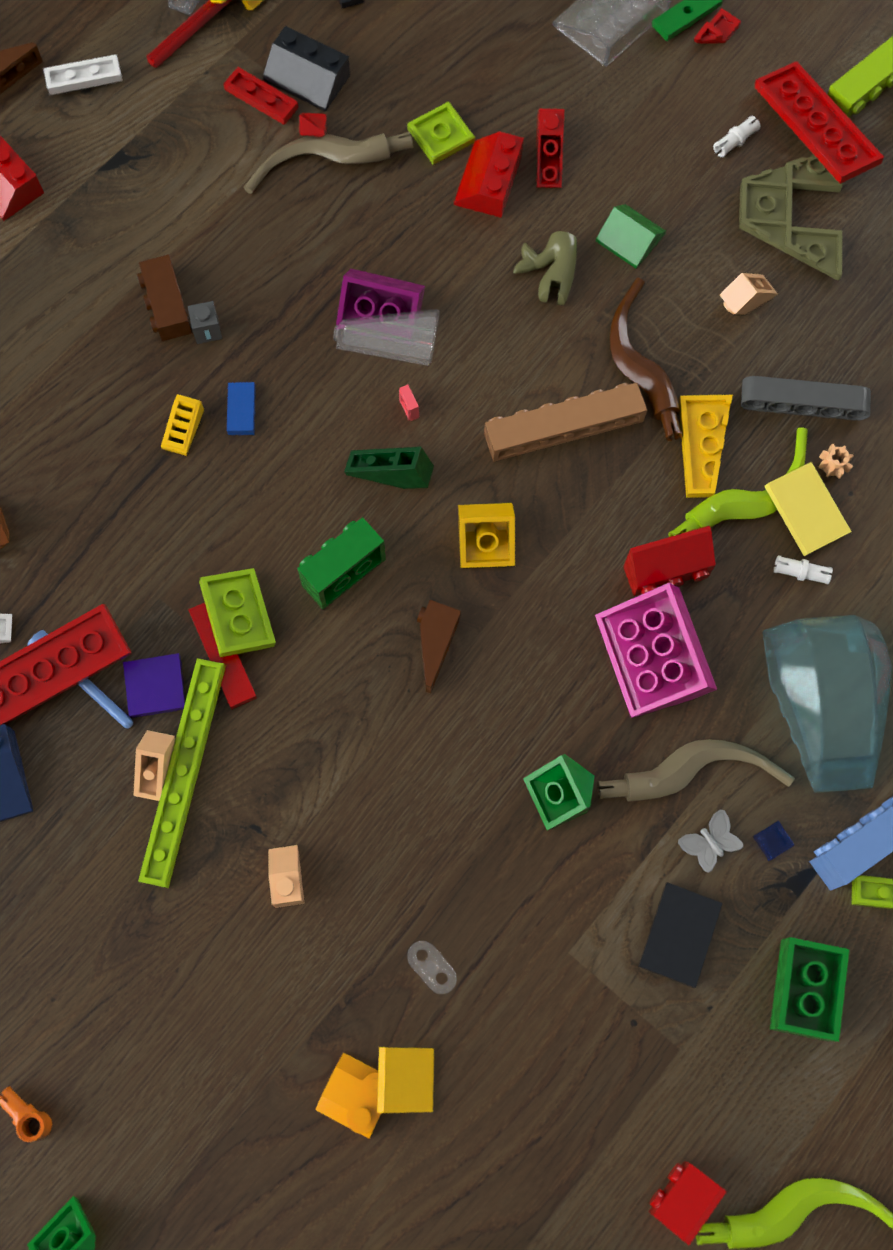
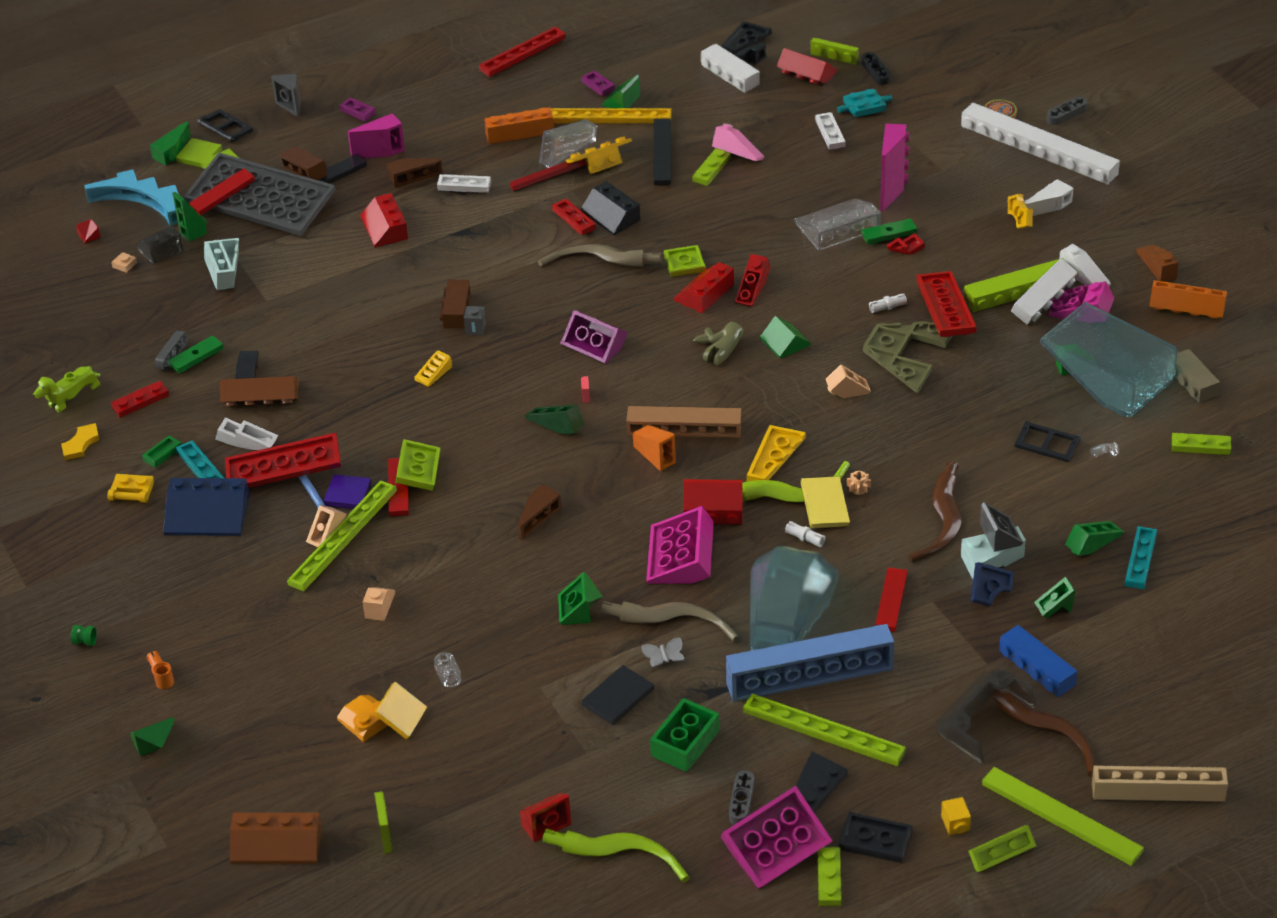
camera: 25 degrees right, 30 degrees down
(241, 408) = (475, 370): blue tile -> none
(312, 124) = (599, 237): red slope -> none
(342, 562) = (496, 453): green brick -> none
(392, 336) = (595, 351): clear slope -> none
(486, 535) = (599, 466): yellow slope -> none
(547, 478) = (656, 446): none -> orange slope
(642, 370) = (752, 409): reddish brown animal -> none
(773, 840) = (707, 665): clear blue tile -> none
(806, 398) = (857, 446): dark grey beam -> none

